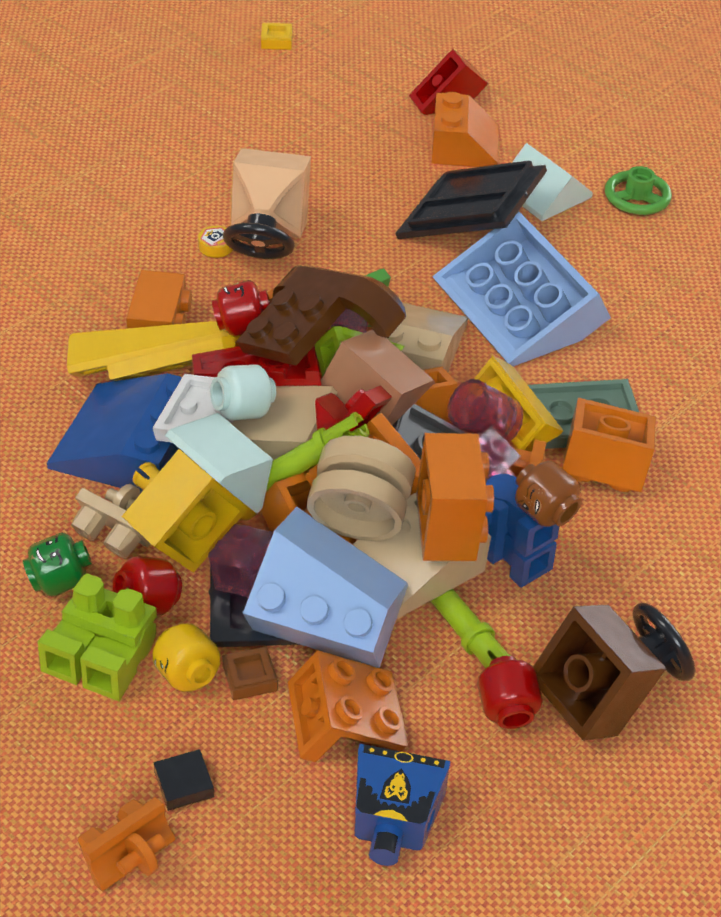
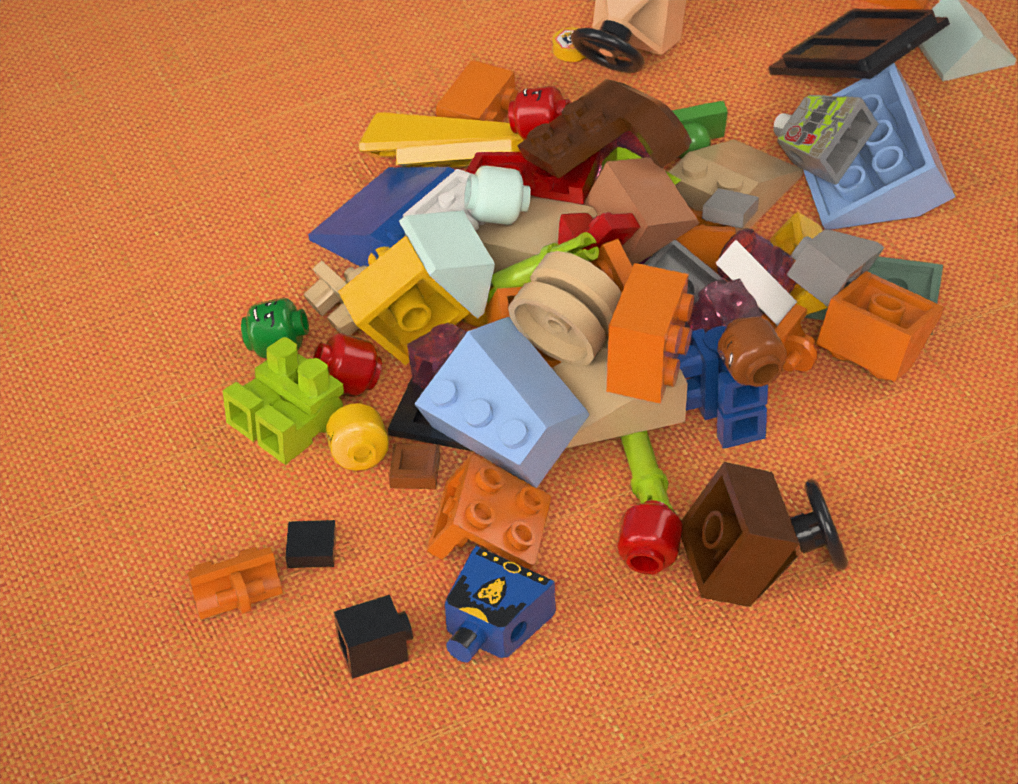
camera: 25 degrees right, 0 degrees up
(291, 864) = (372, 635): none -> black brick
(444, 363) = (730, 208): none -> light grey tile
(483, 283) = (825, 134): none -> light grey torso
(486, 416) = (765, 289): none -> white sticker
(555, 398) = (831, 262): none -> light grey slope

